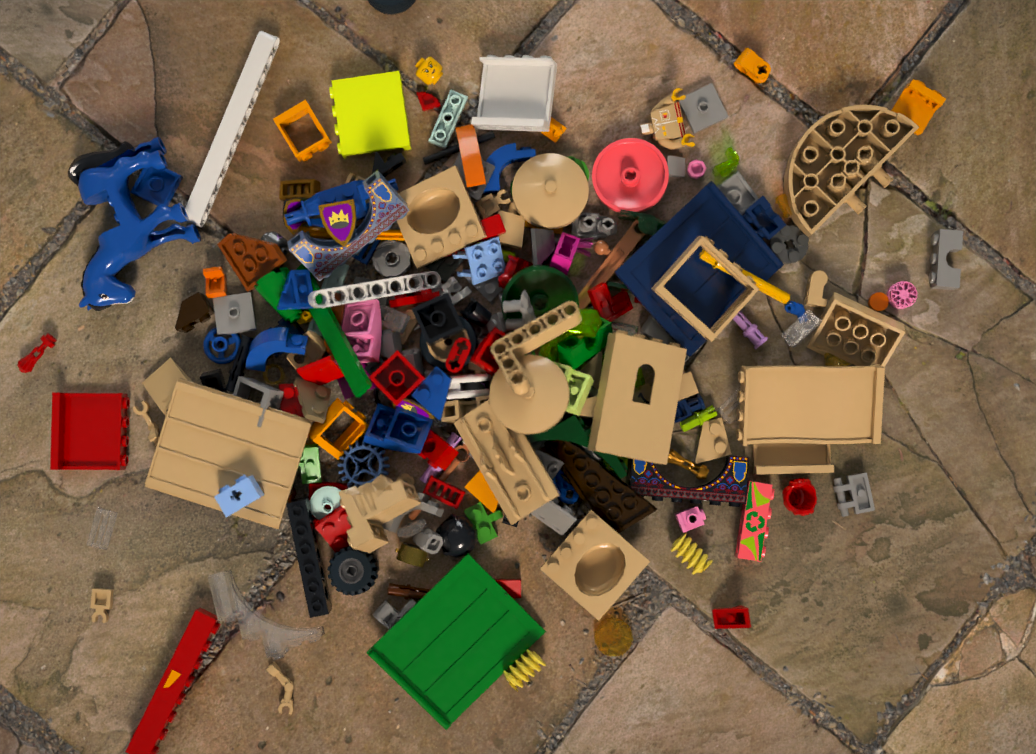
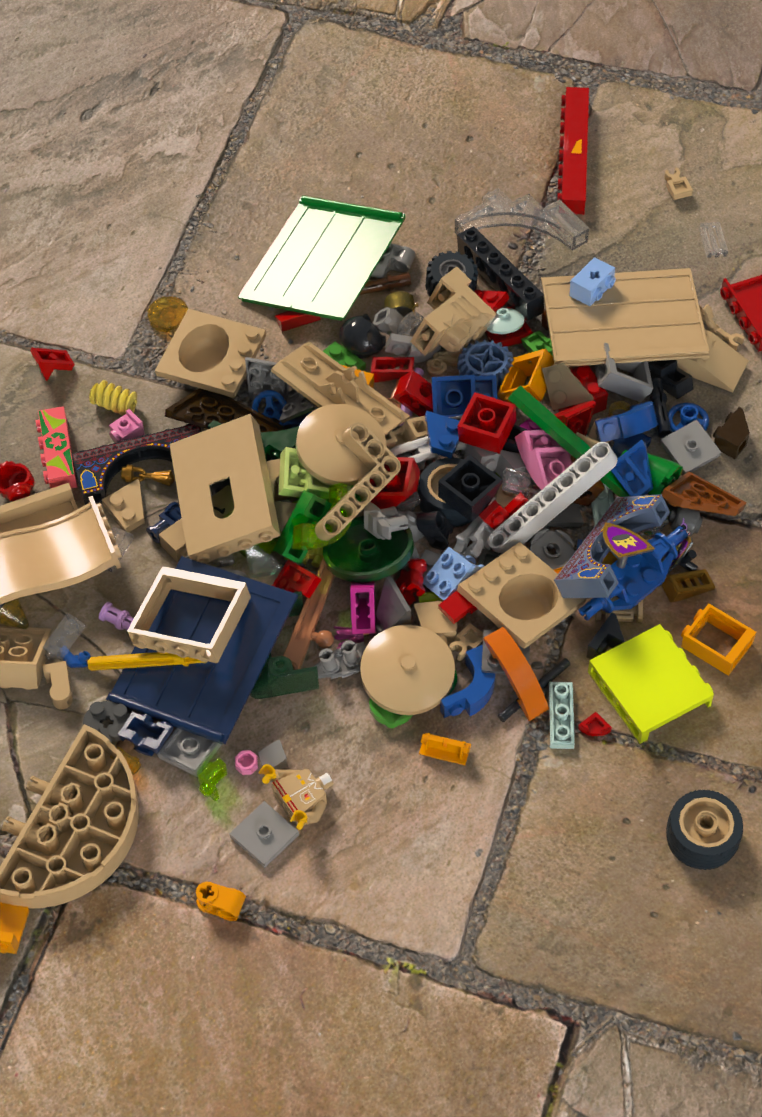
camera: 155 degrees right, 30 degrees down
(215, 282) = (726, 466): orange bracket -> none
(287, 700) = (467, 182): tan piece -> none
(429, 70) = (609, 752): yellow head -> none
(454, 352) = (429, 471): red beam -> none
(516, 93) = (493, 754): white panel -> none
(524, 669) = (246, 259): light yellow piece -> none
(630, 175) = (321, 720): coral dish -> none
(698, 418) = (149, 519): lime axle -> none

